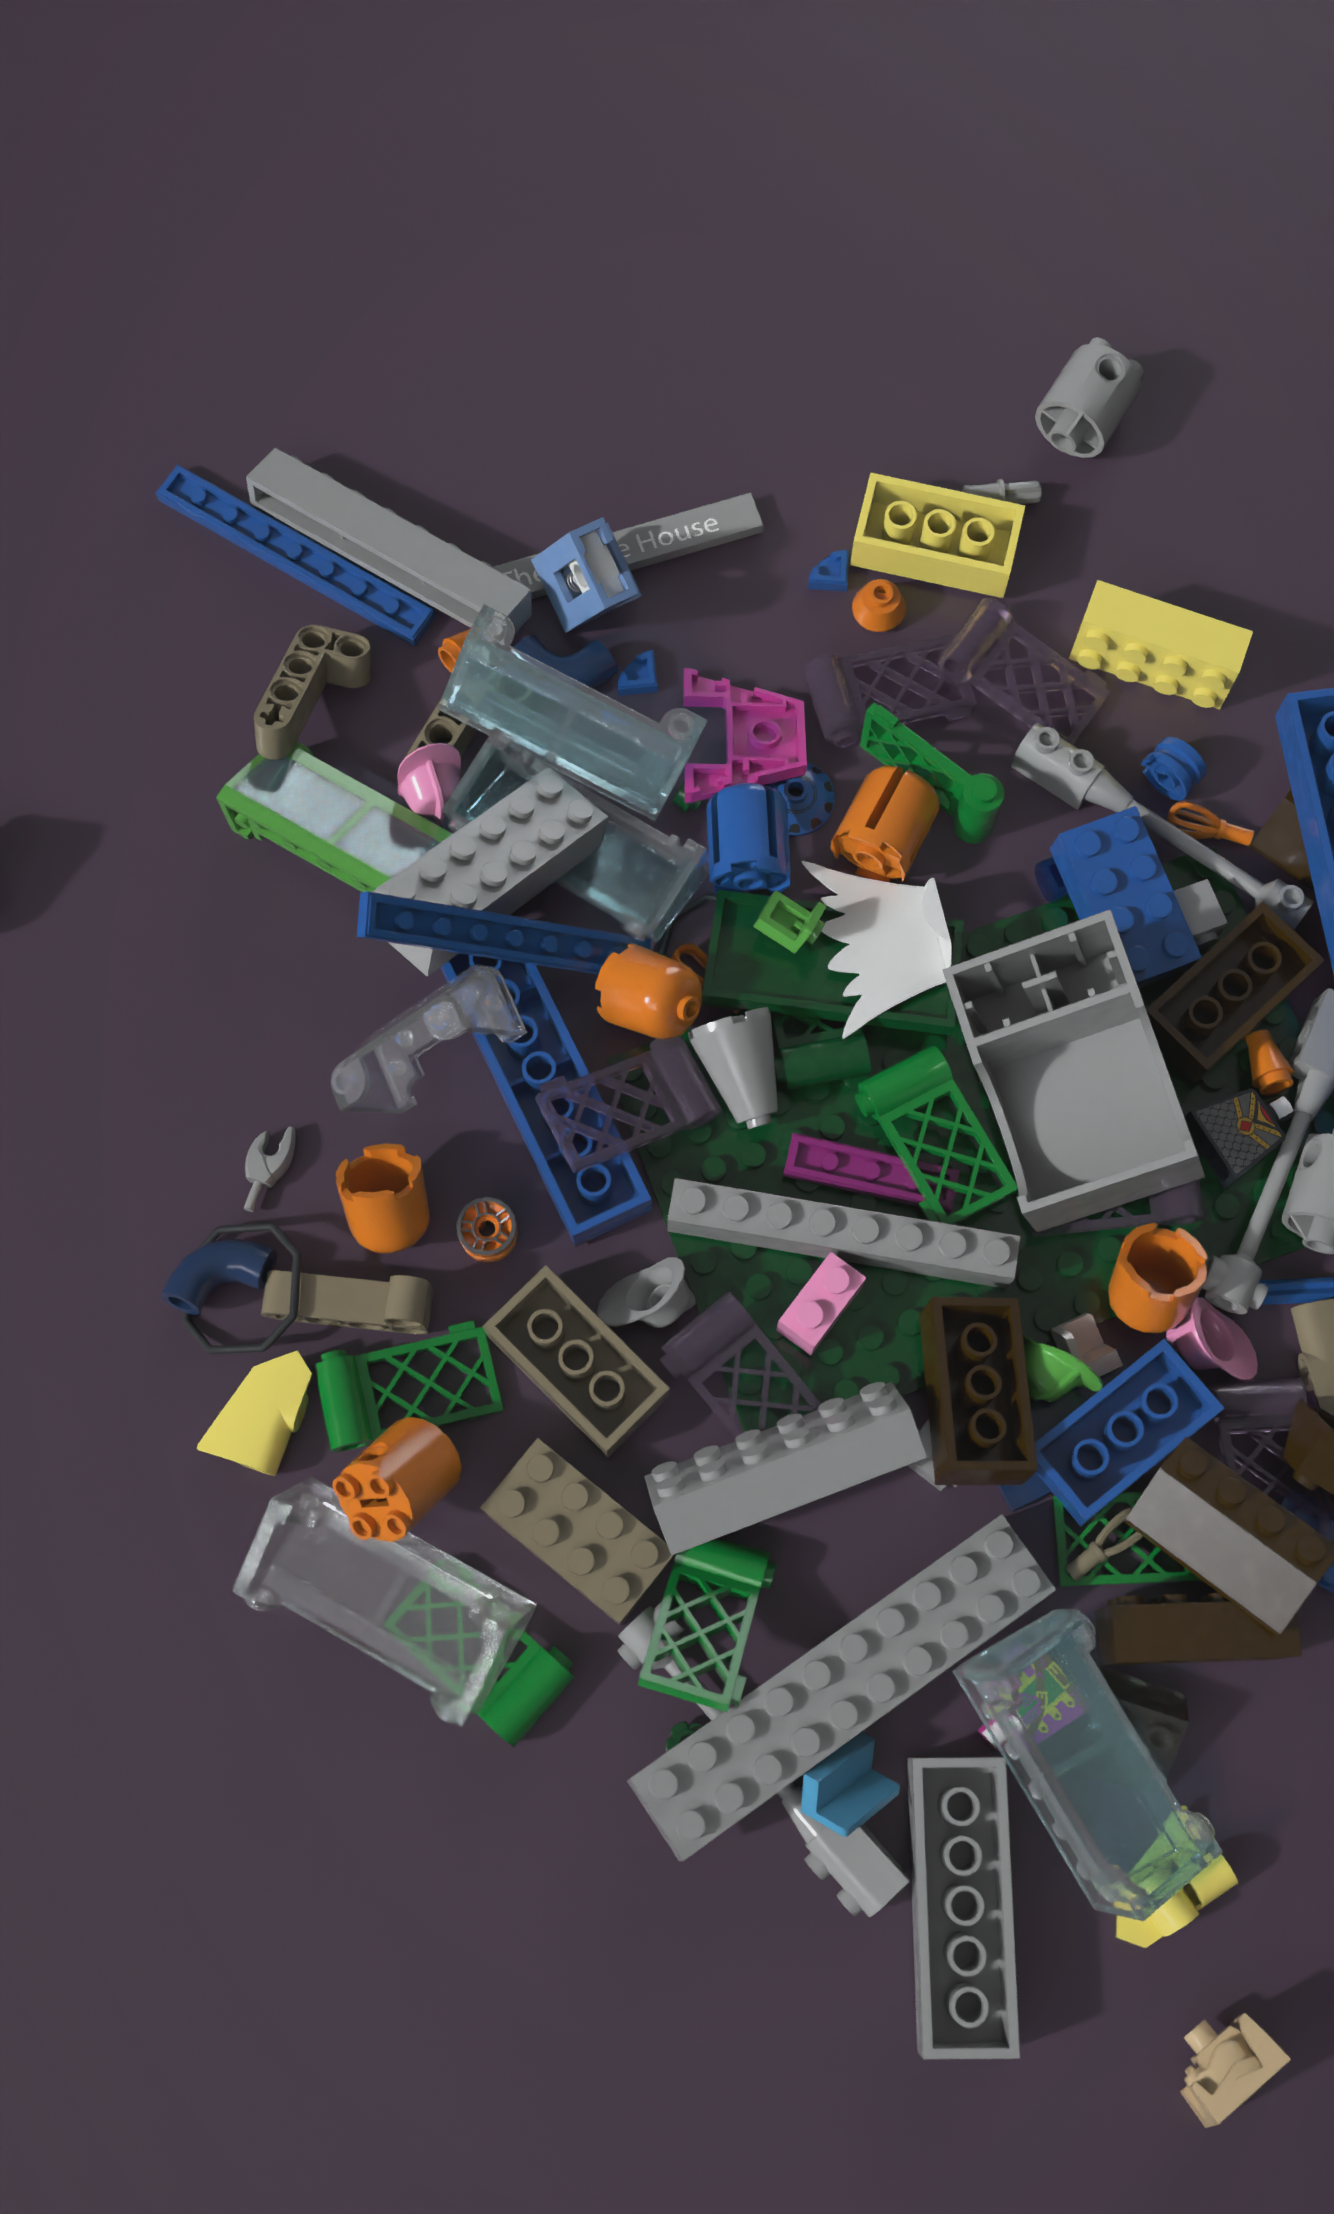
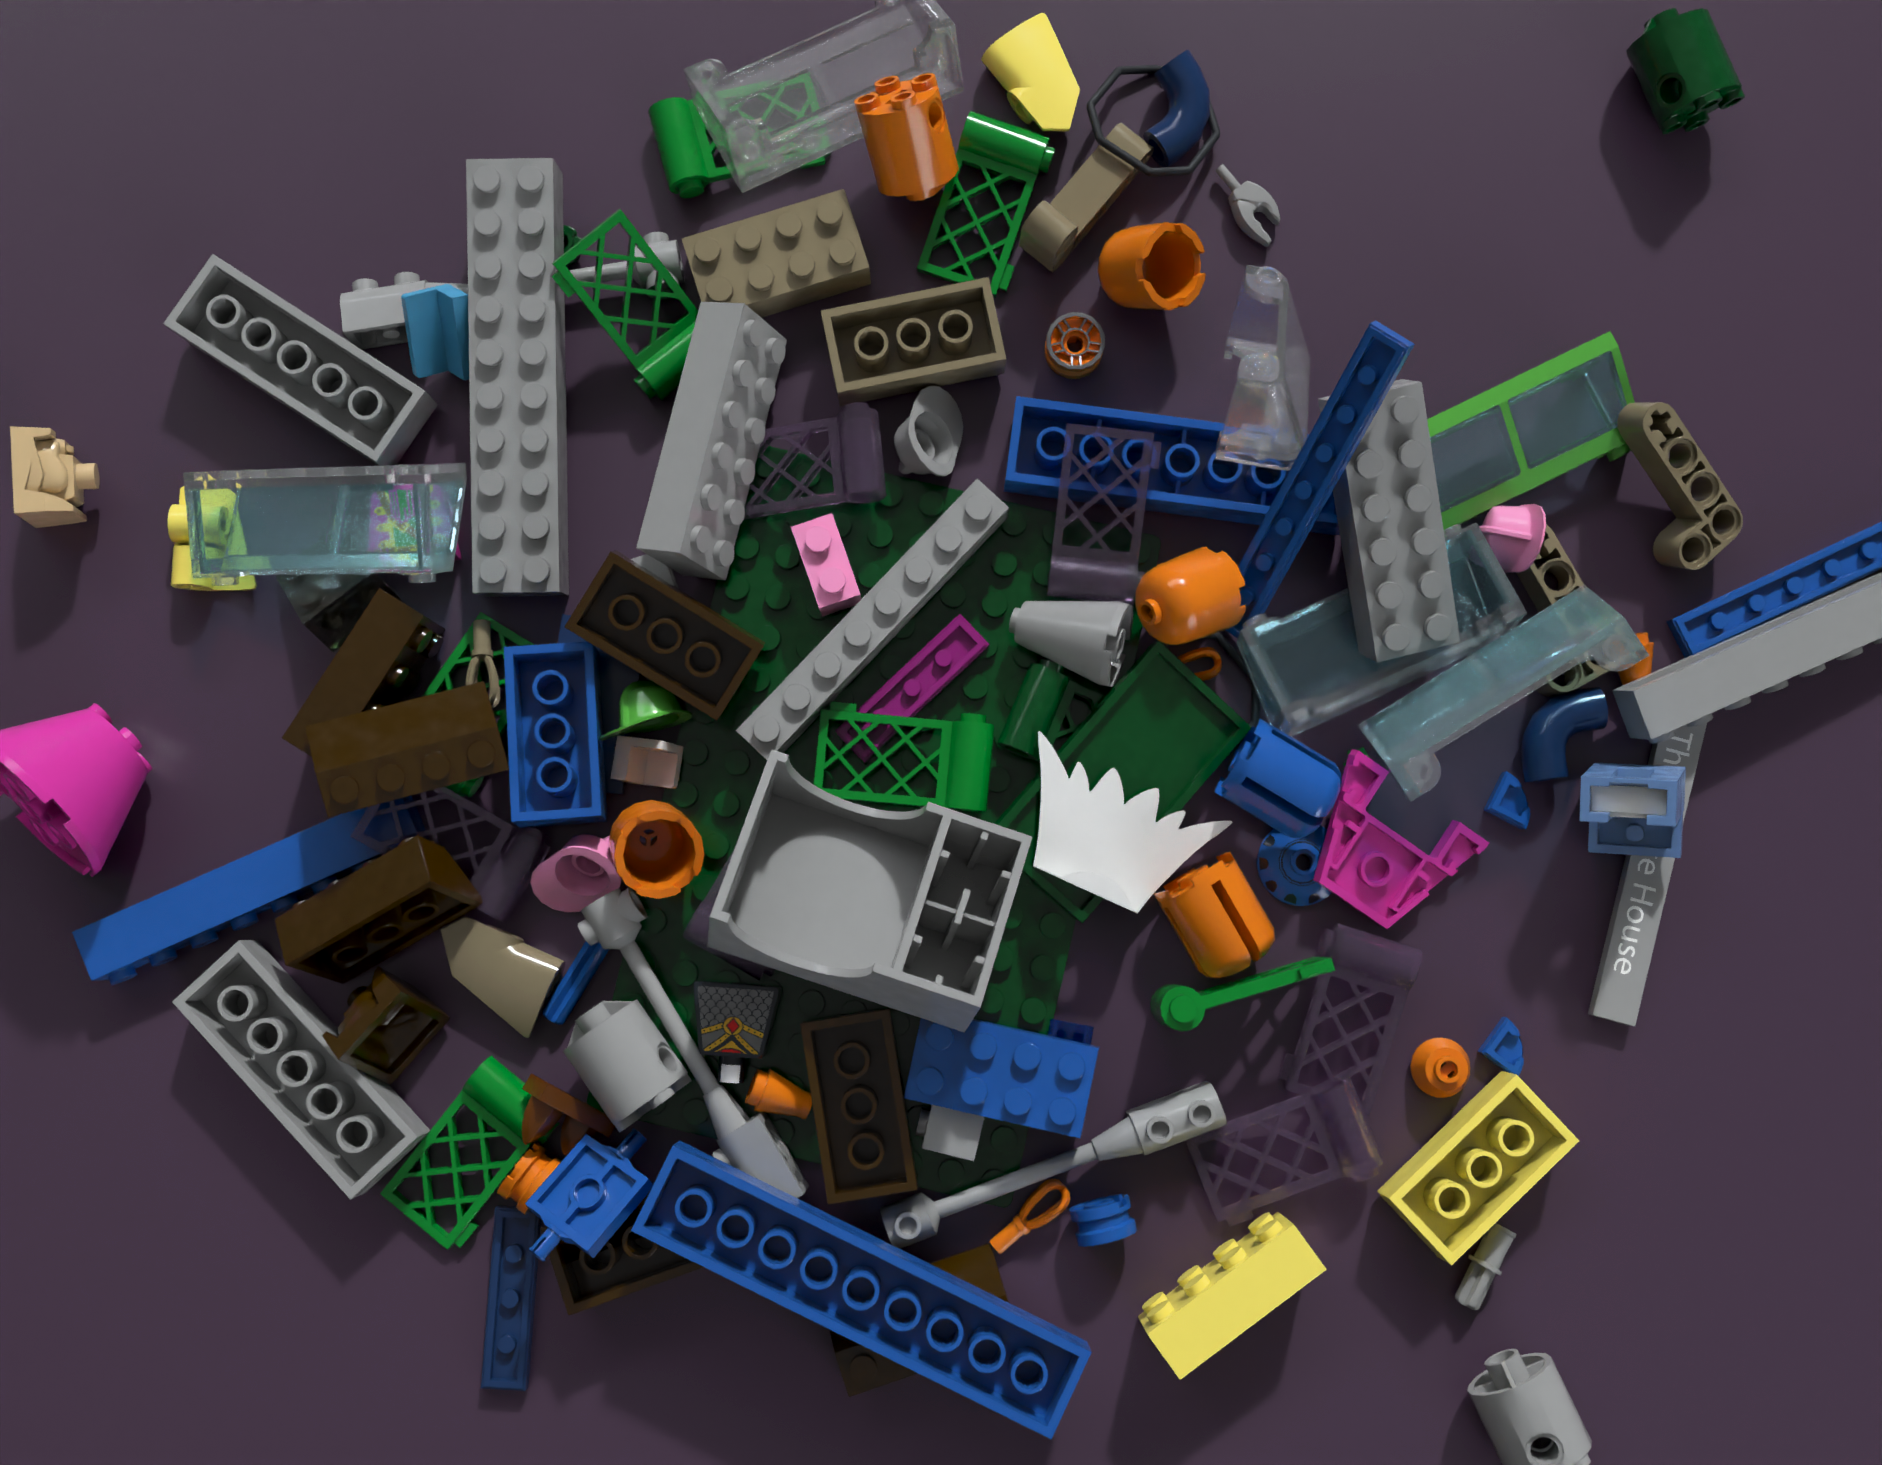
camera: 120 degrees right, 10 degrees up
(789, 922) = (1177, 761): bright green bracket -> none

